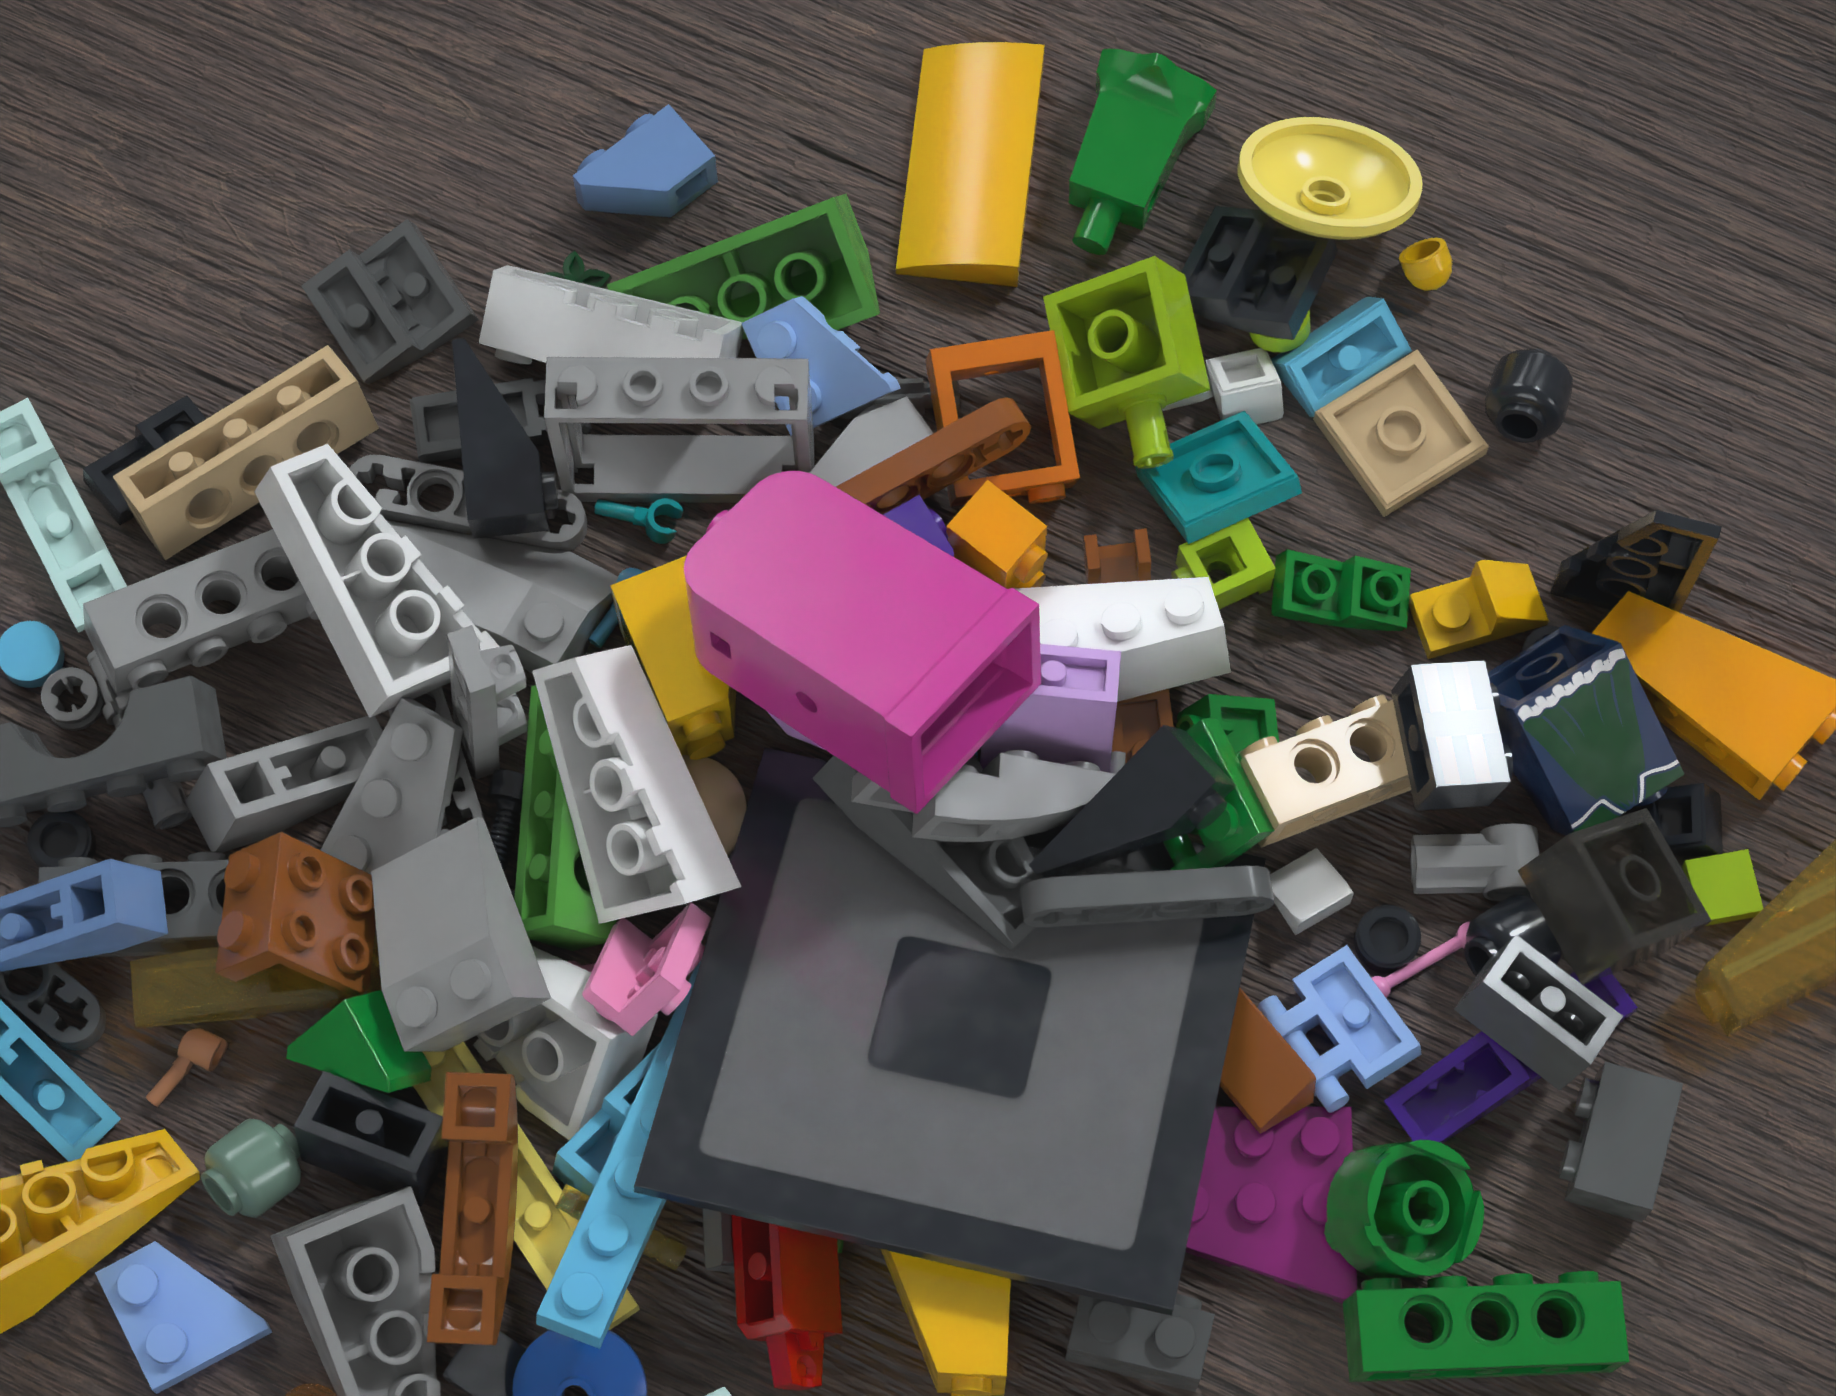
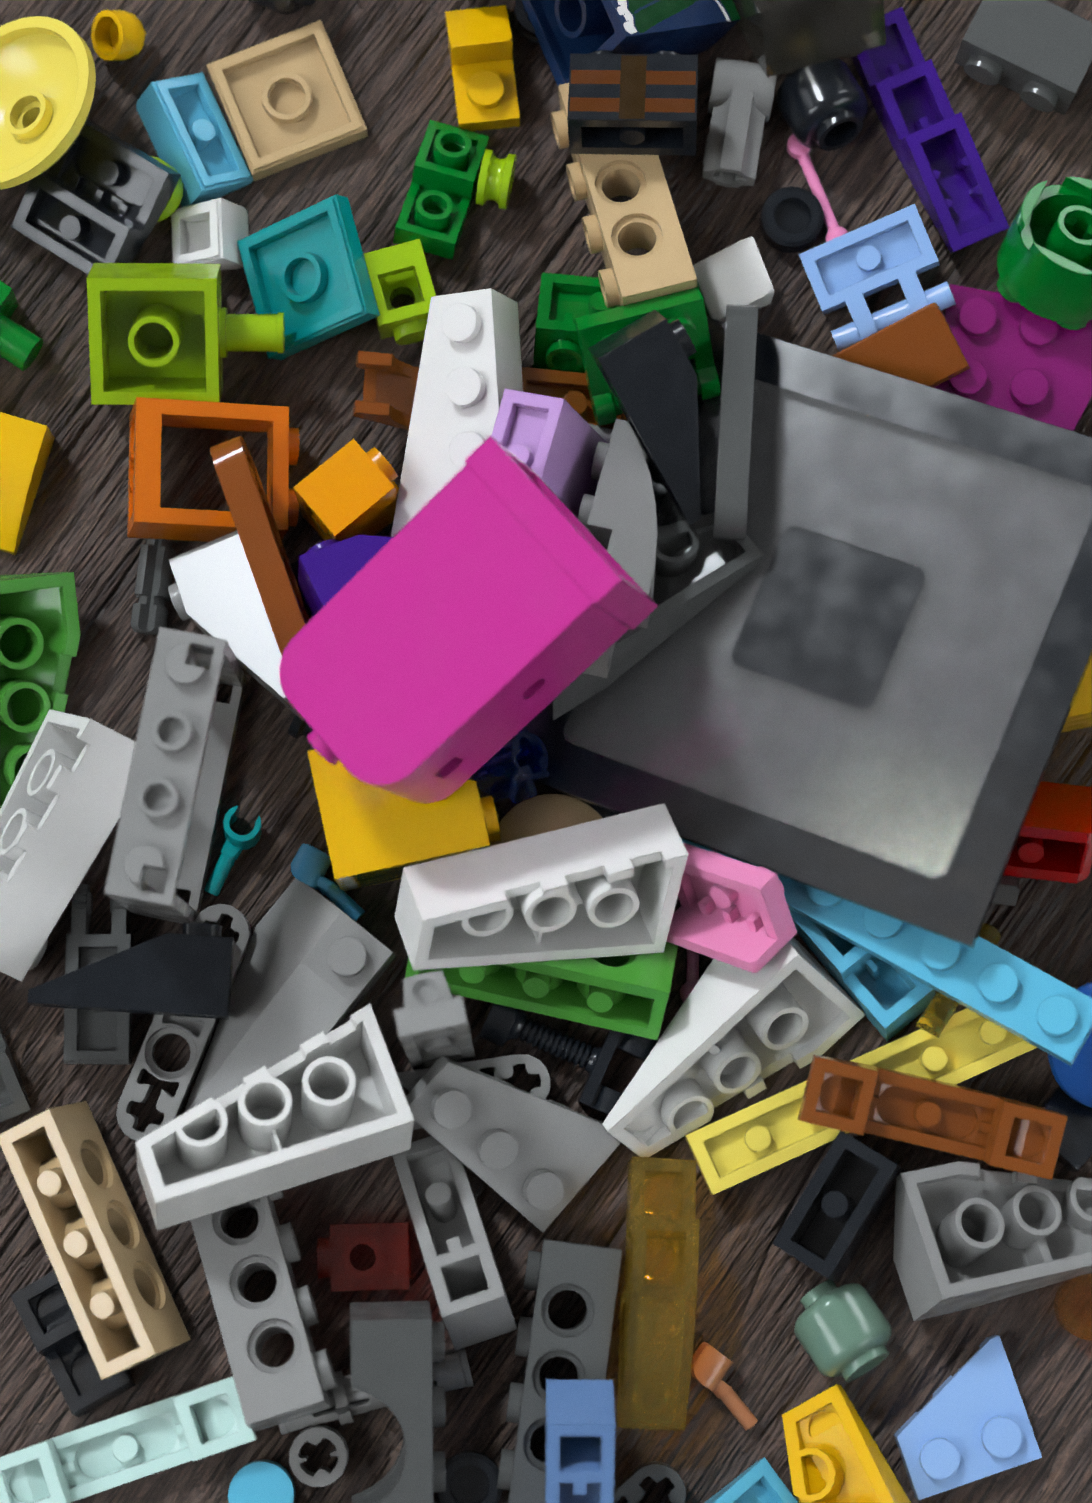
camera: 85 degrees left, 10 degrees up
(269, 722) = (392, 1250): none -> clear red brick
(296, 911) = (613, 1249): dark orange bracket -> none
(361, 1045) = (750, 1200): green slope -> none
(452, 941) = (666, 1096): light grey slope -> none
(769, 760) = (514, 769): none -> clear blue gear
(837, 372) = (110, 647): light blue wing -> none
(1361, 638) = (496, 179): none -> lime bush
(1538, 1012) = (914, 84): dark grey brick -> none

